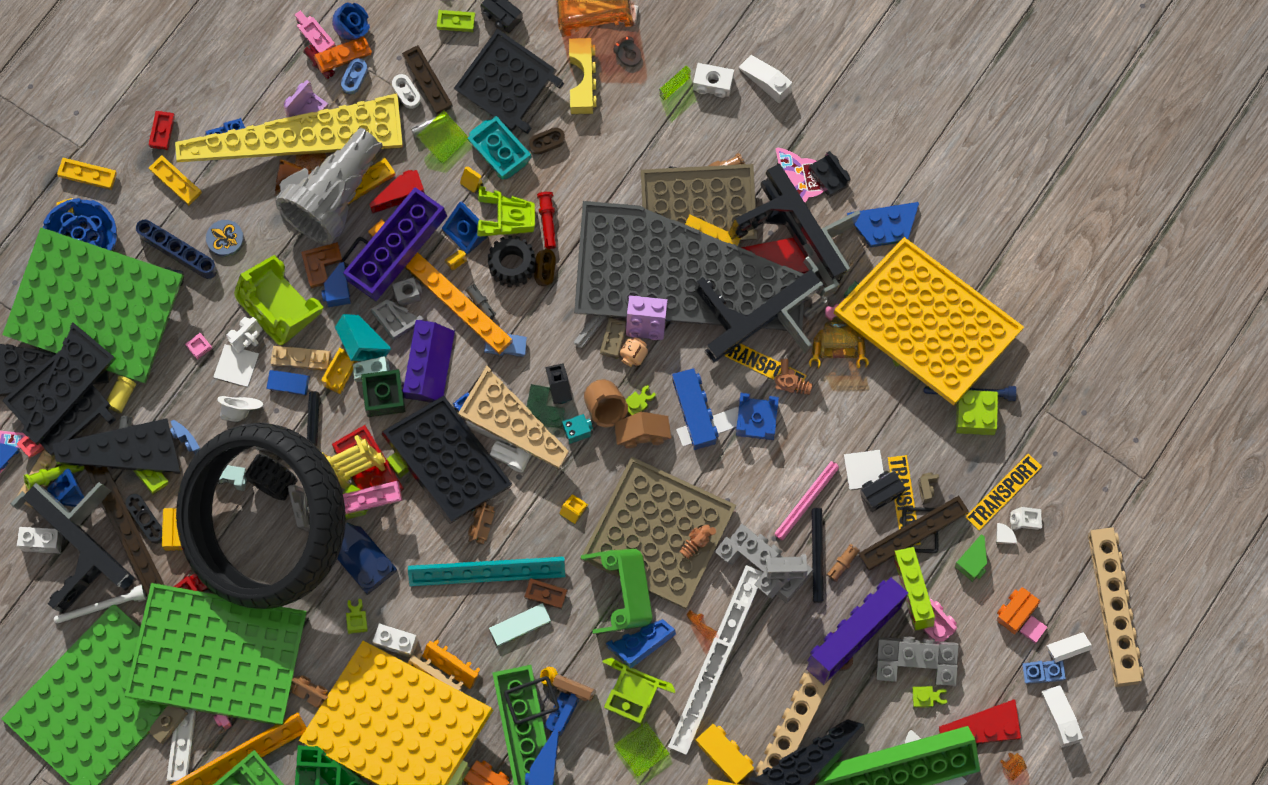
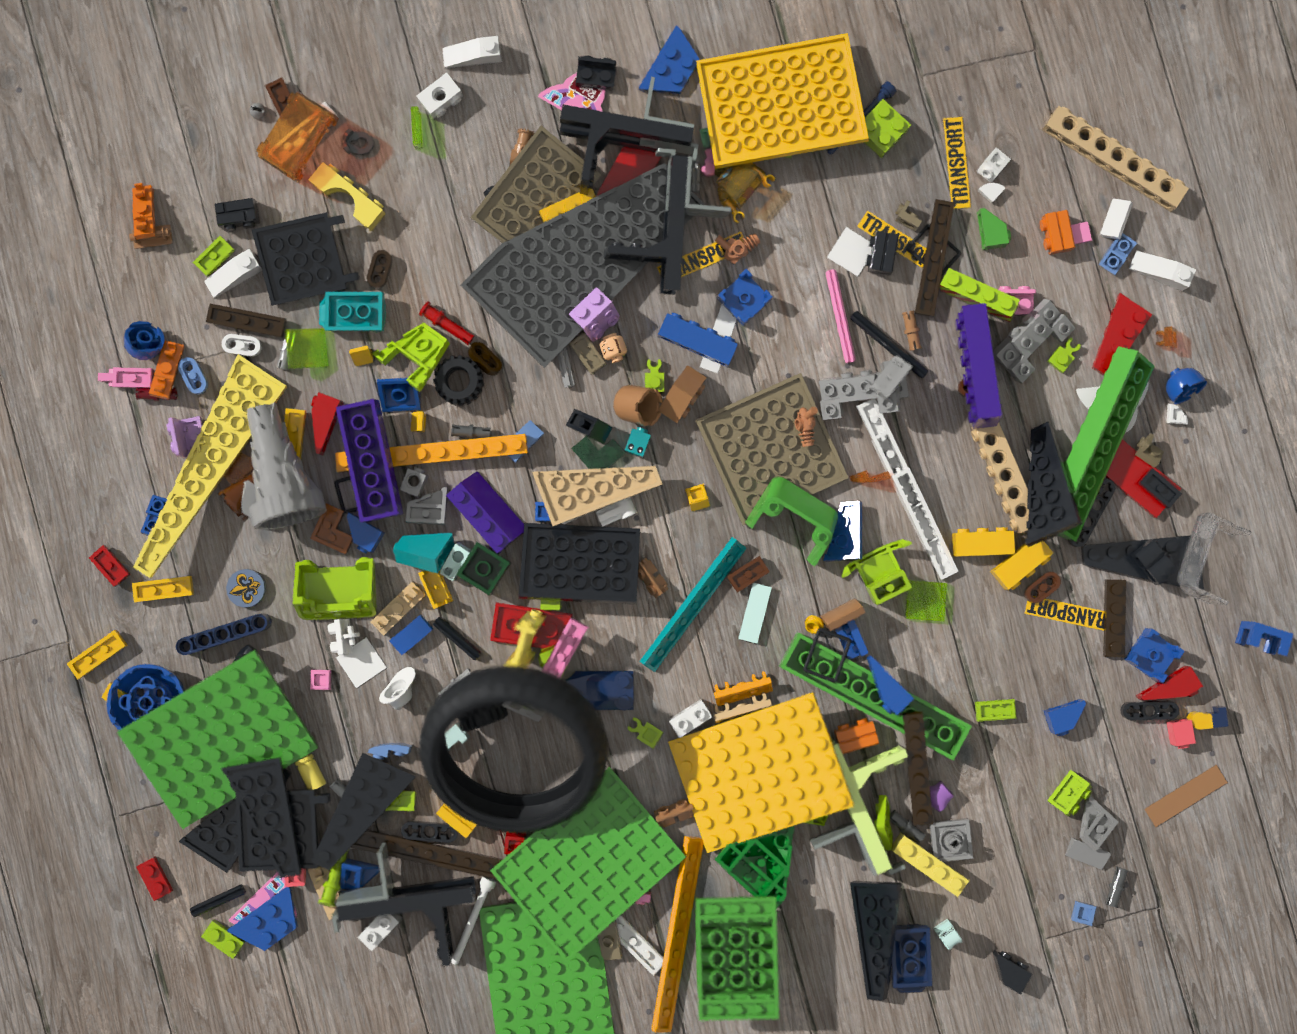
camera: 50 degrees left, 15 degrees up
(455, 43) = (233, 273): none -> white slope

